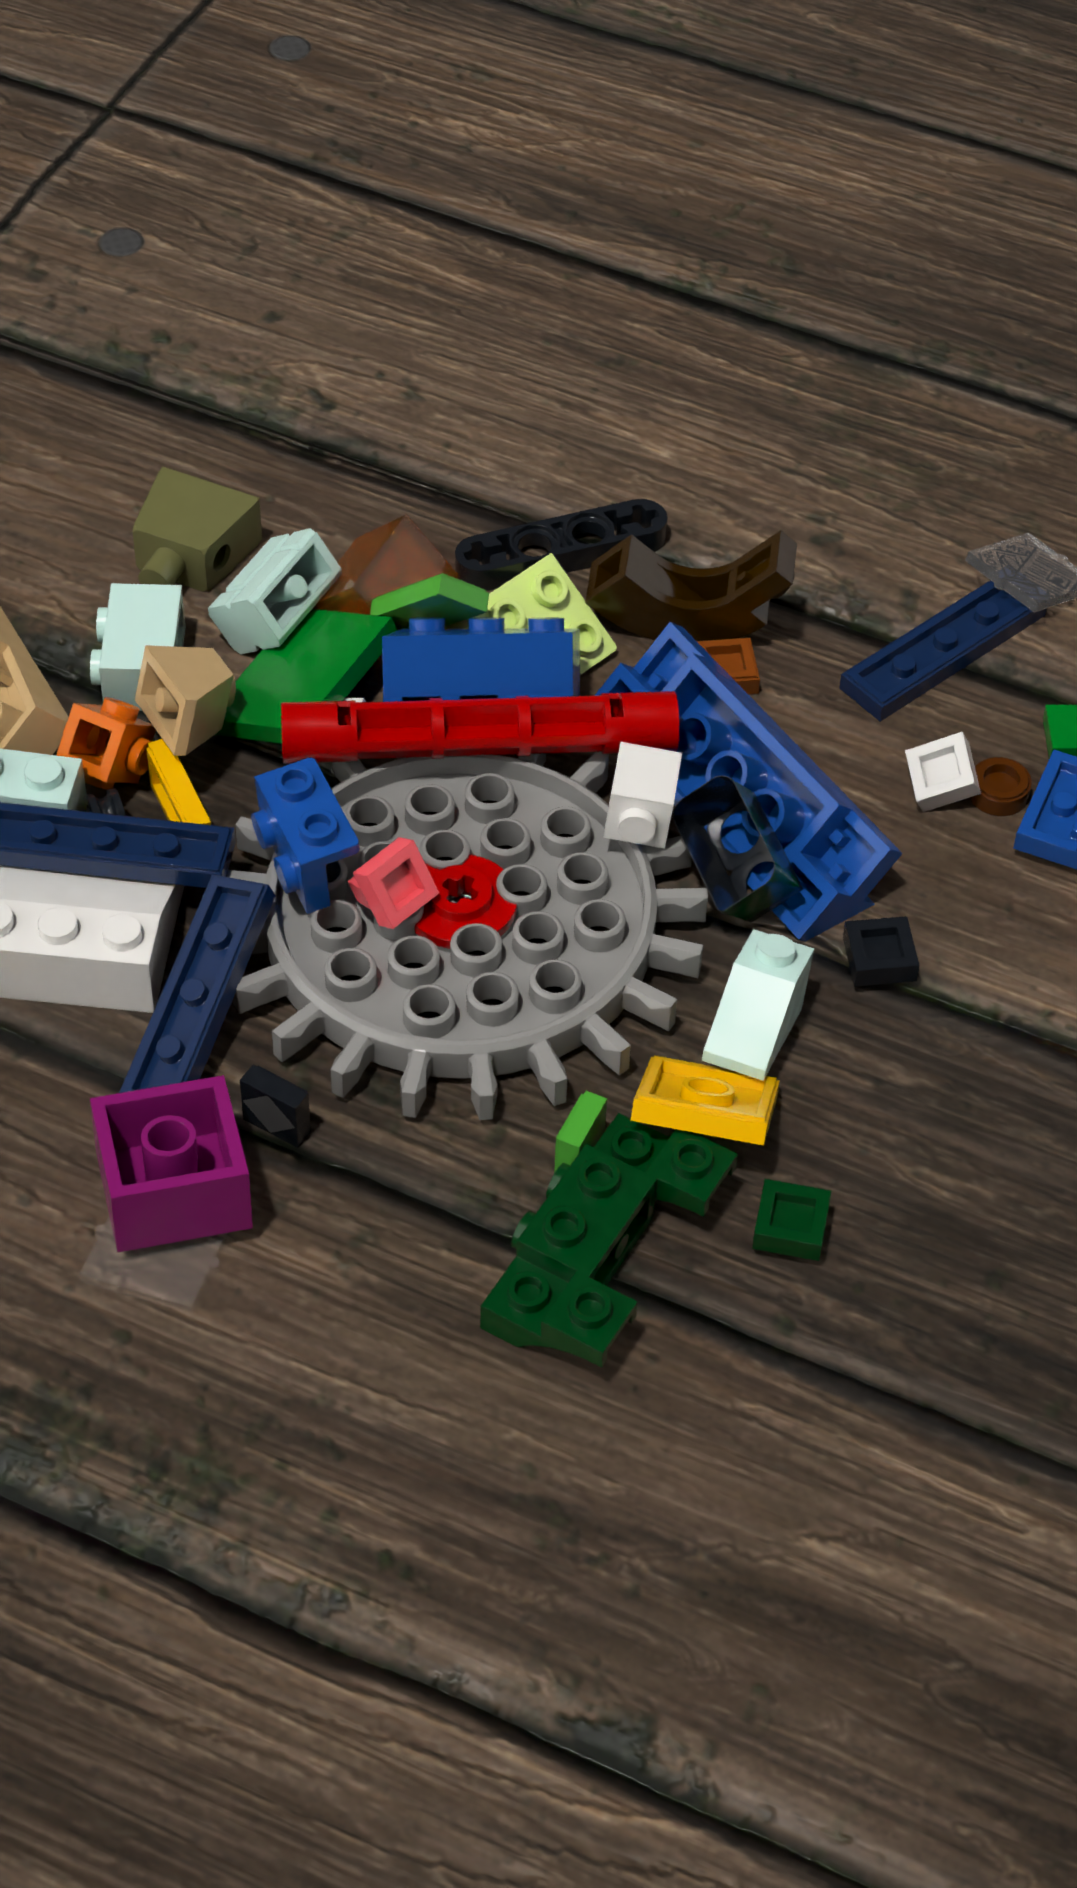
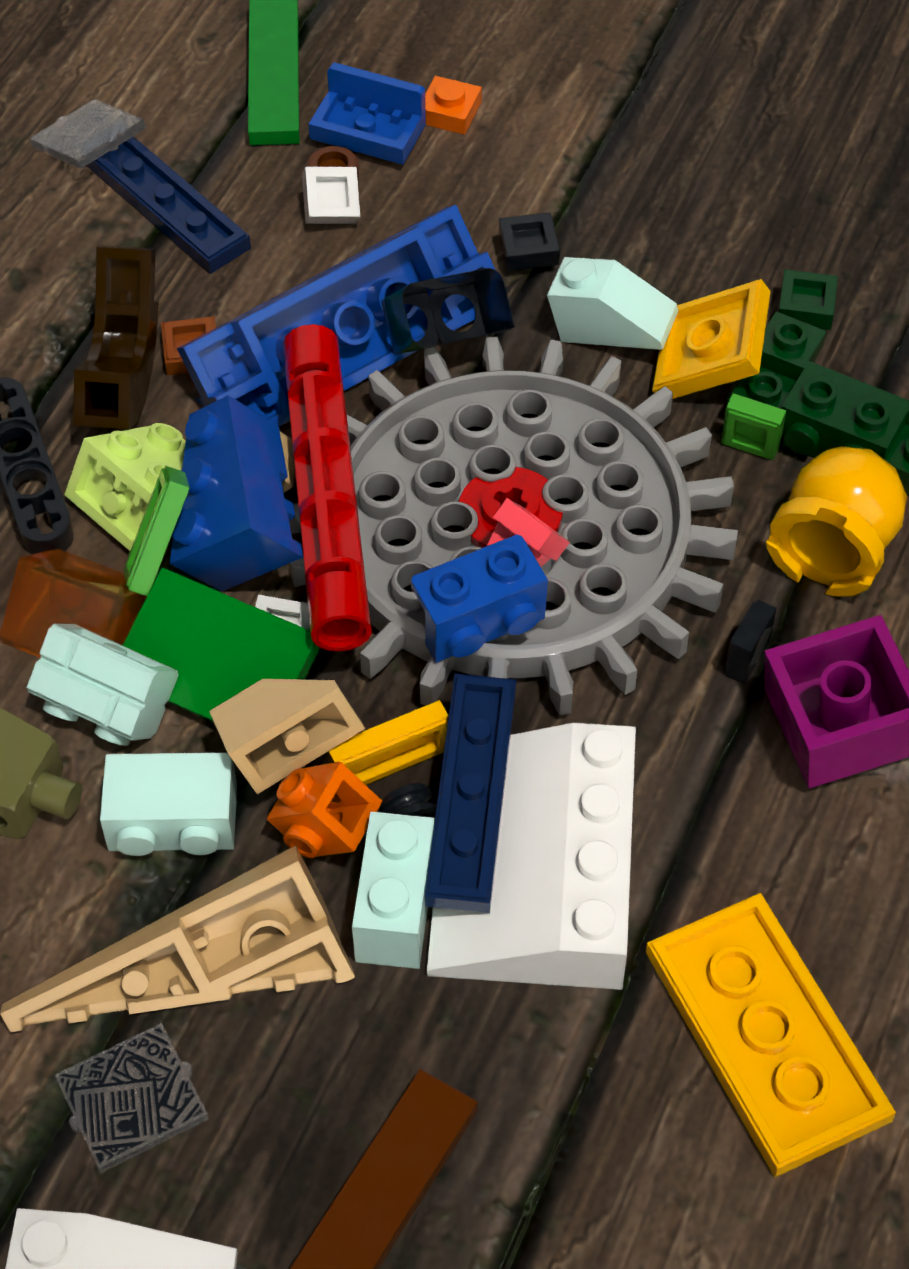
camera: 90 degrees left, 5 degrees up
(201, 984) = (644, 699): dark blue tile -> none
(425, 1187) = (839, 520): none -> yellow tile
(642, 795) = (409, 361): white brick -> none

